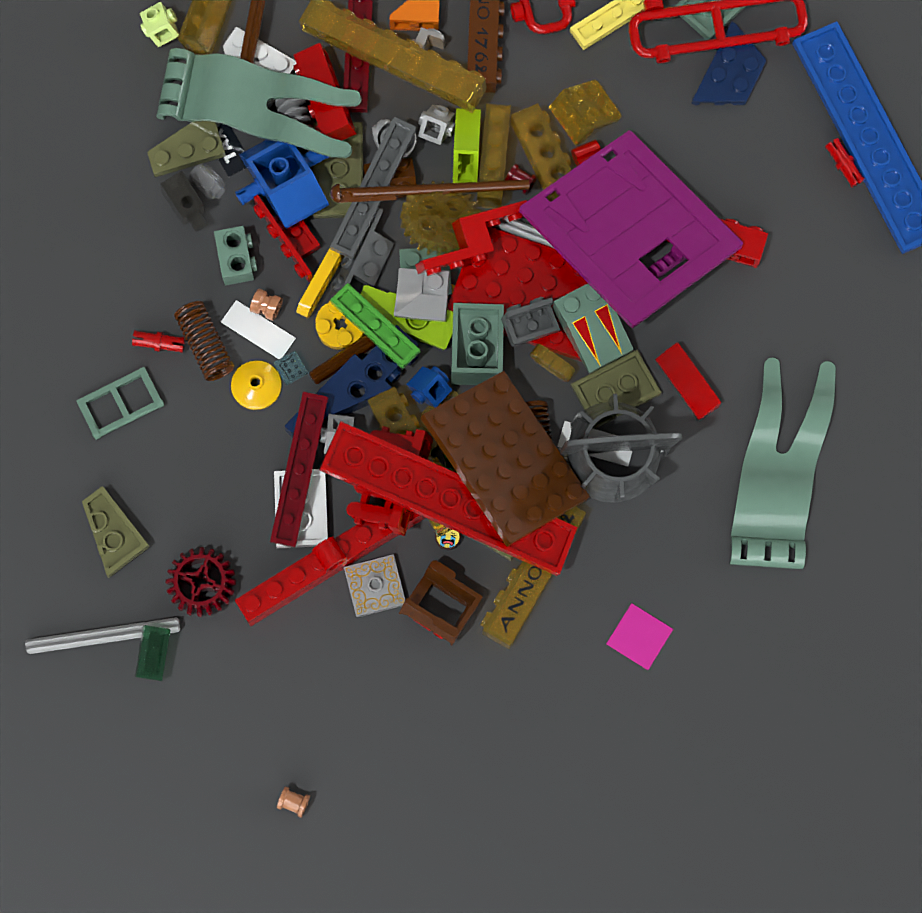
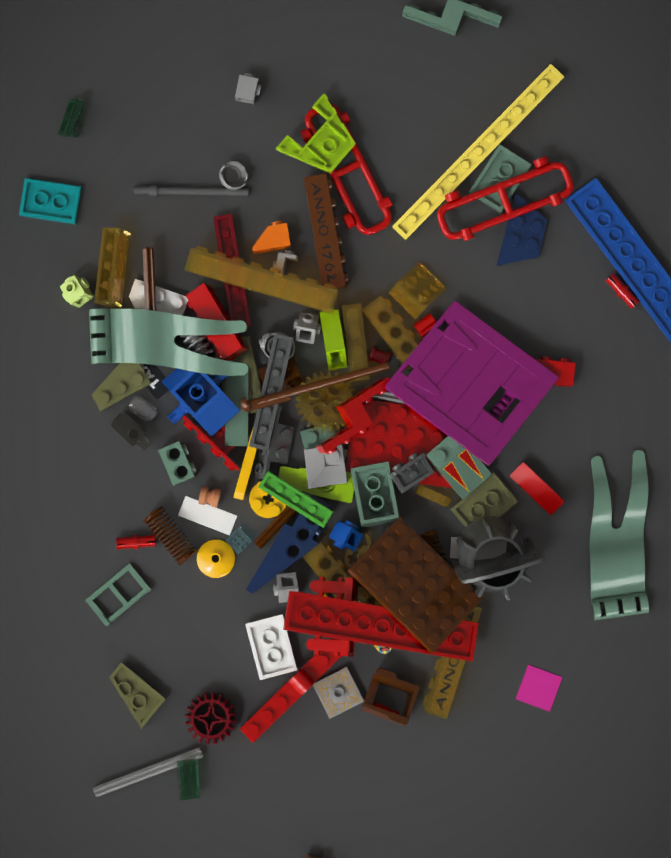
camera: 10 degrees left, 10 degrees up
(299, 469) = (264, 622): dark red plate -> none
(321, 225) = (237, 428): none -> sand green sticker

